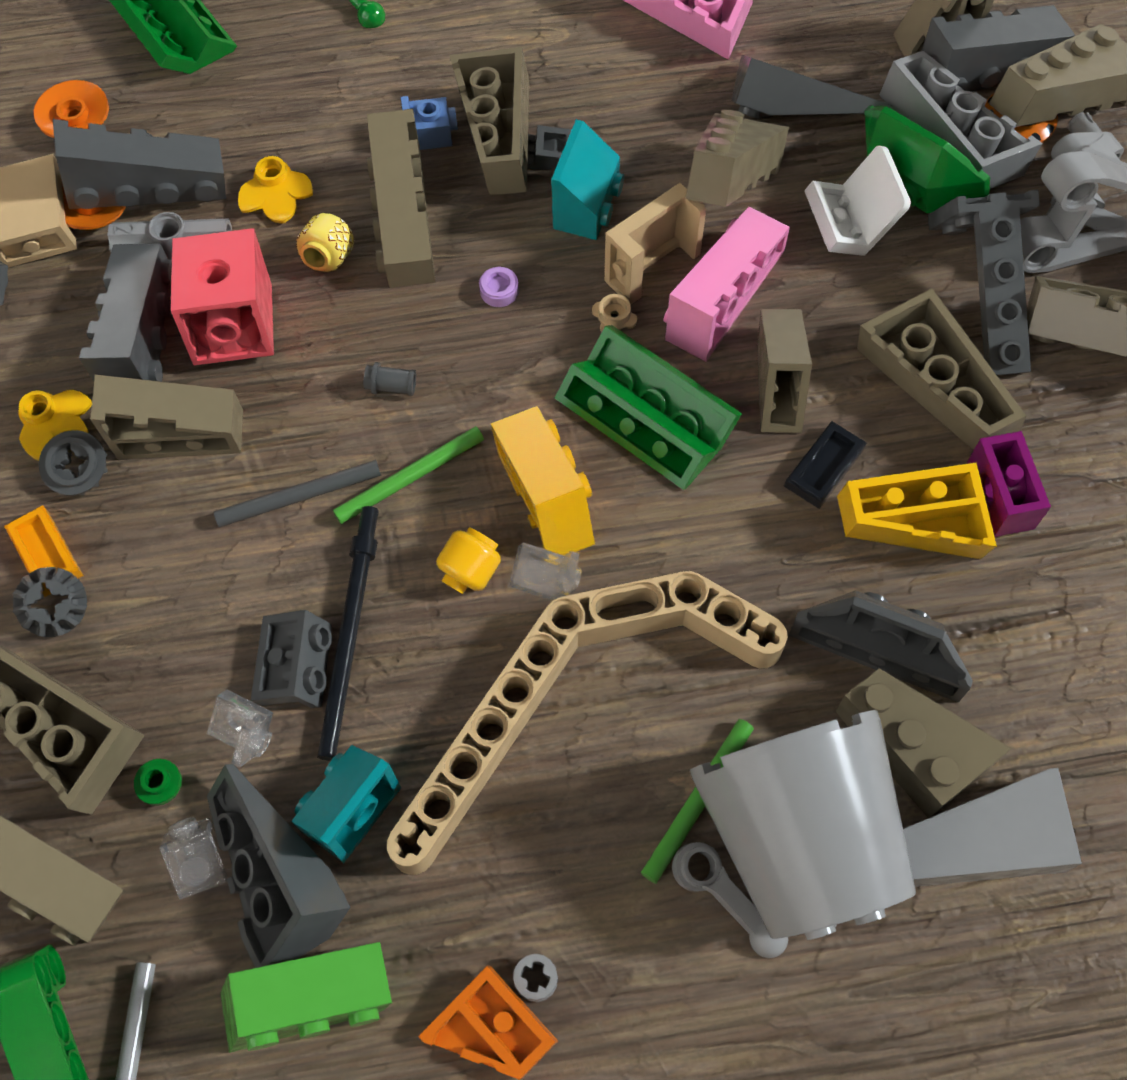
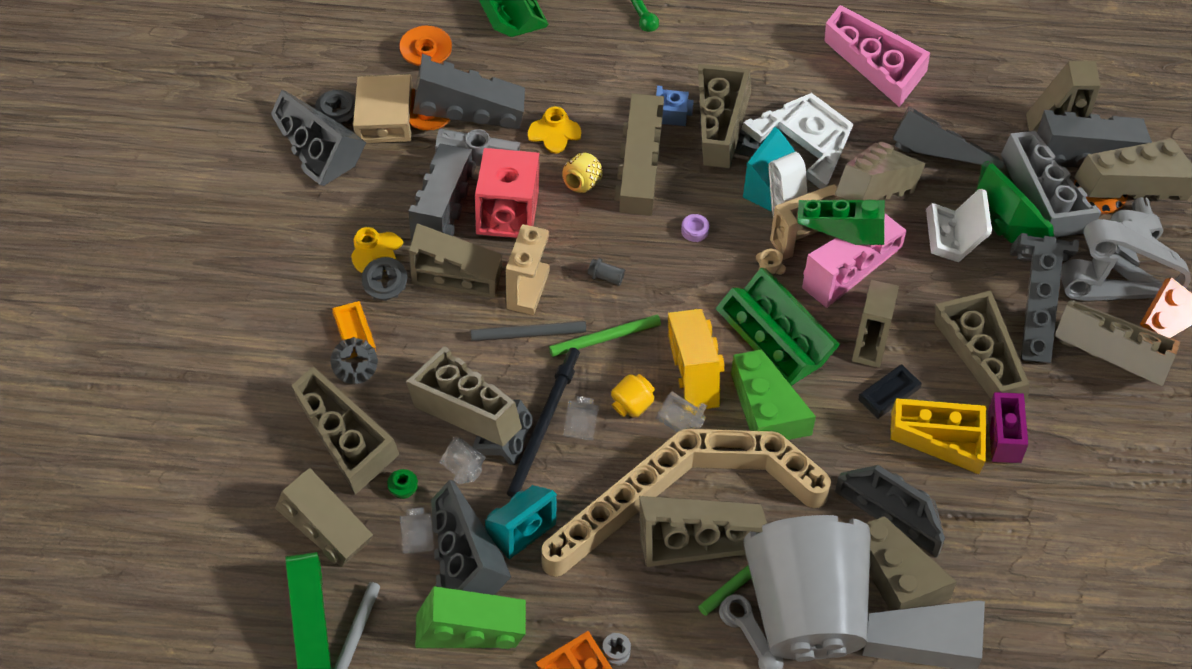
camera: 10 degrees right, 10 degrees down
(218, 630) = (463, 398): none -> dark tan wedge
(269, 409) = (525, 272): none -> tan panel
(402, 613) = (581, 418): none -> clear bracket
(612, 191) = (787, 179): none -> white beam
(616, 754) = (695, 529): none -> dark tan wedge
(624, 110) = (813, 127): none -> white wing
(663, 519) = (769, 398): none -> bright green wedge
(710, 231) = (849, 220): none -> green slope

